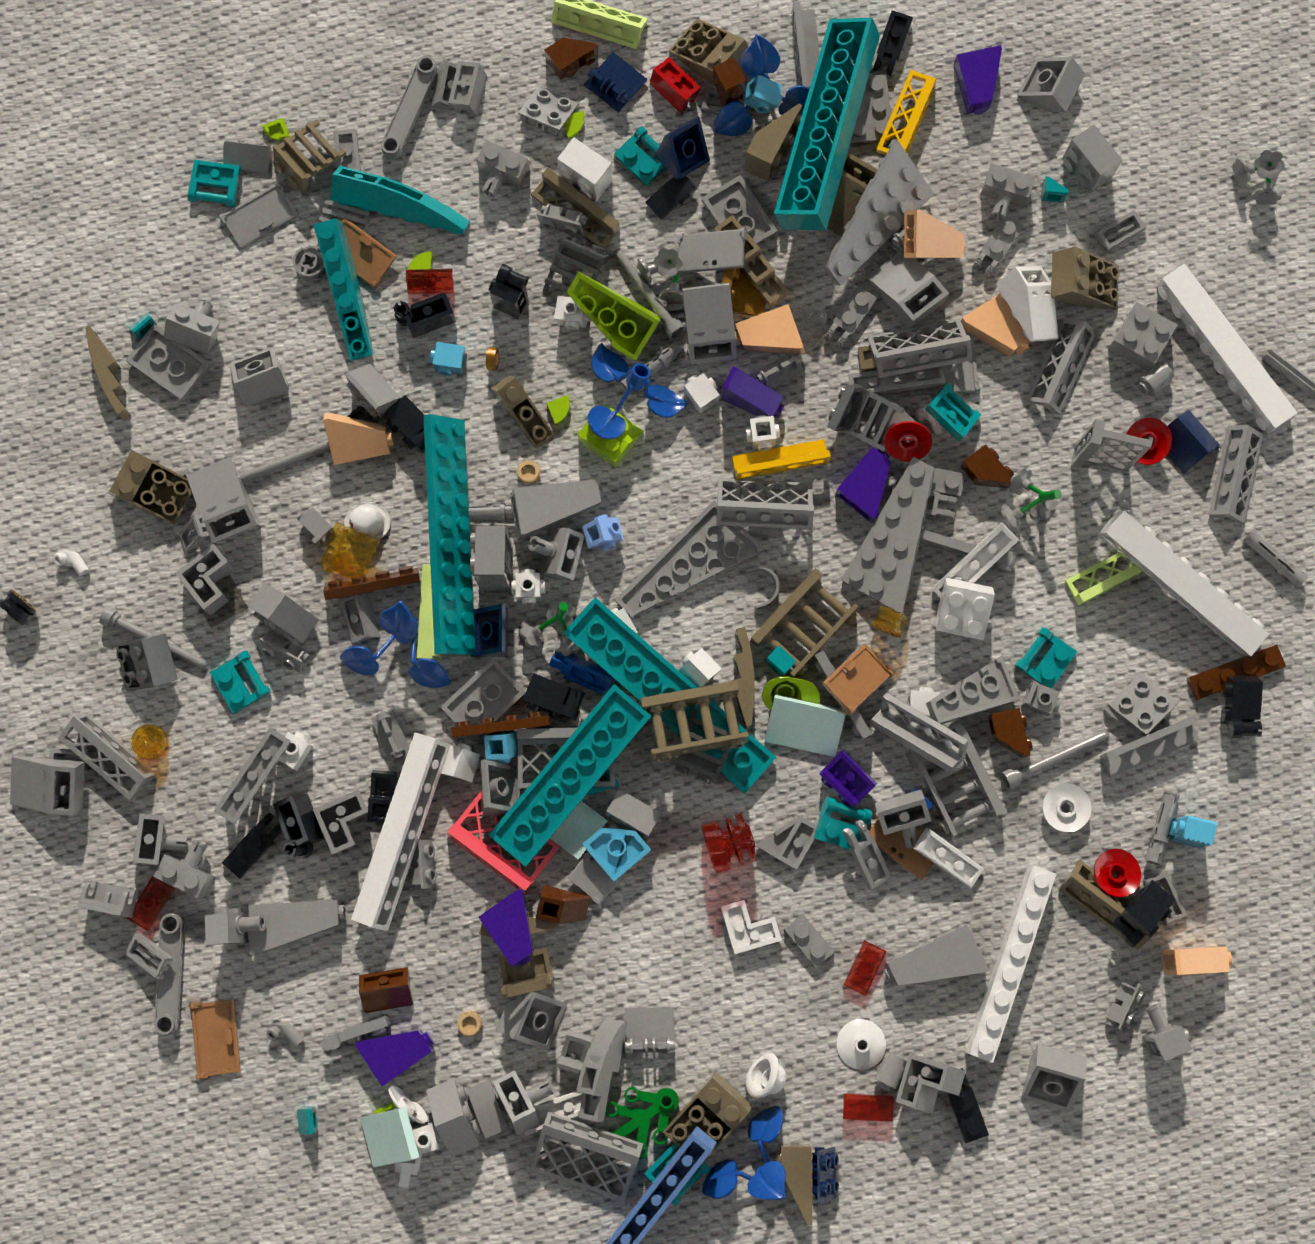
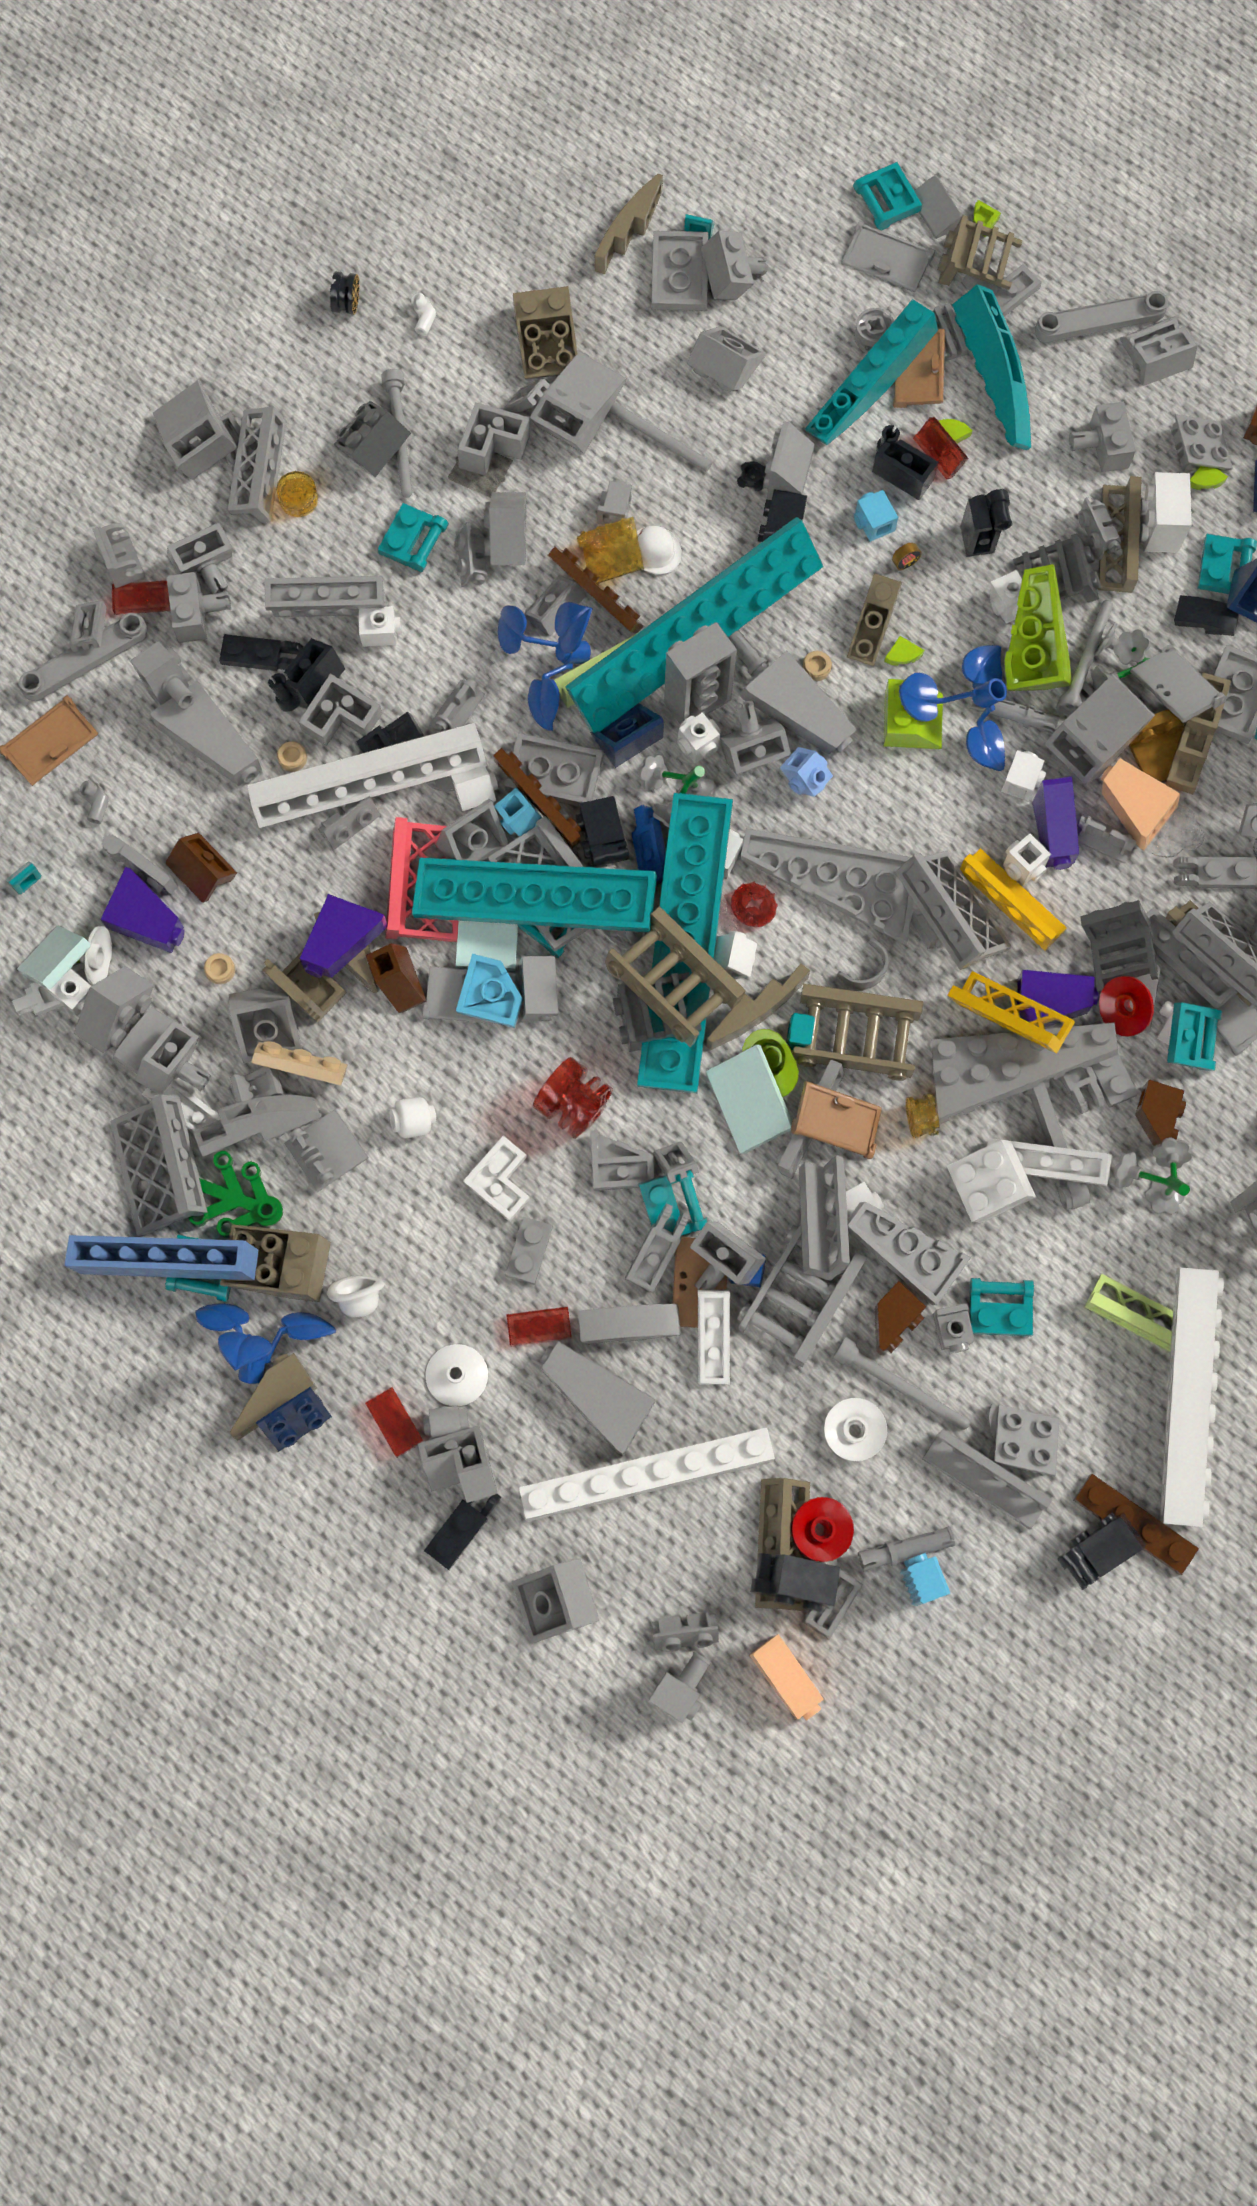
camera: 55 degrees right, 5 degrees down
(346, 873) = (292, 756): none -> tan tile
(355, 438) = (729, 480): light nougat slope -> none
(579, 1012) = (299, 1062): none -> tan plate
(661, 636) = (752, 915): none -> clear red gear
(667, 959) = (412, 1117): none -> white head
(828, 805) = (678, 1168): none -> light grey tile
(847, 779) = (724, 1179): dark purple bracket -> none
(865, 524) = (1006, 1018): none -> yellow fence
(903, 907) = (629, 1323): none -> light grey slope

